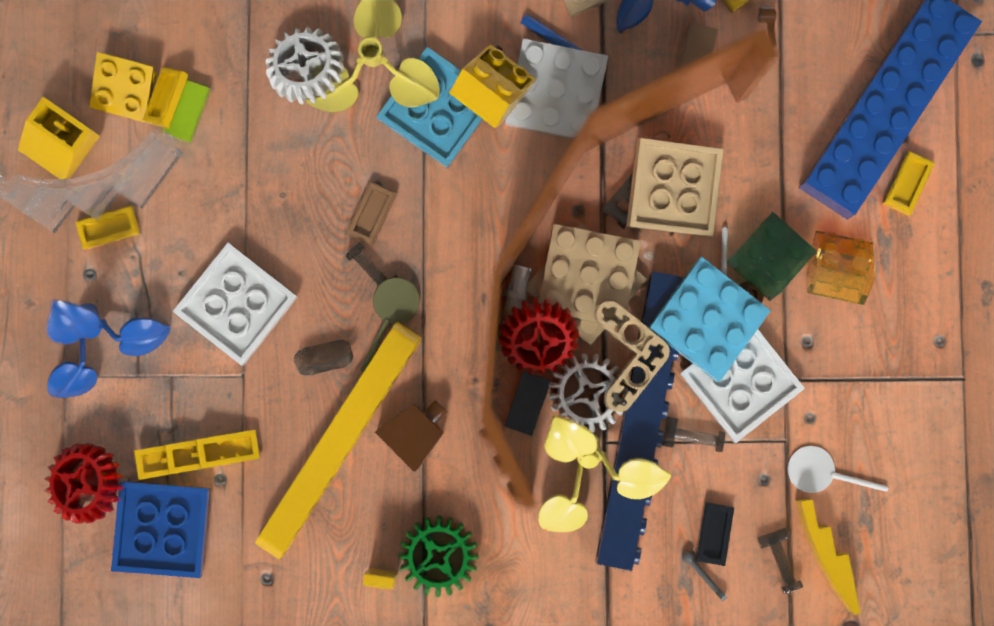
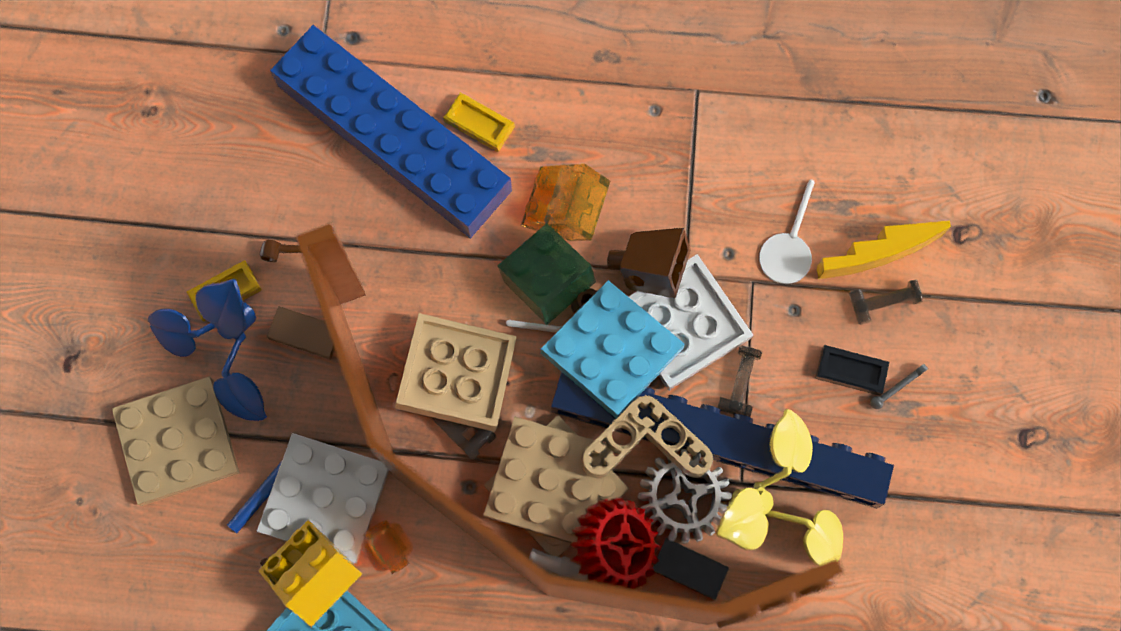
camera: 85 degrees left, 10 degrees down
(520, 147) = (387, 546): none -> clear orange head
(793, 349) = (653, 261): none -> reddish brown torso

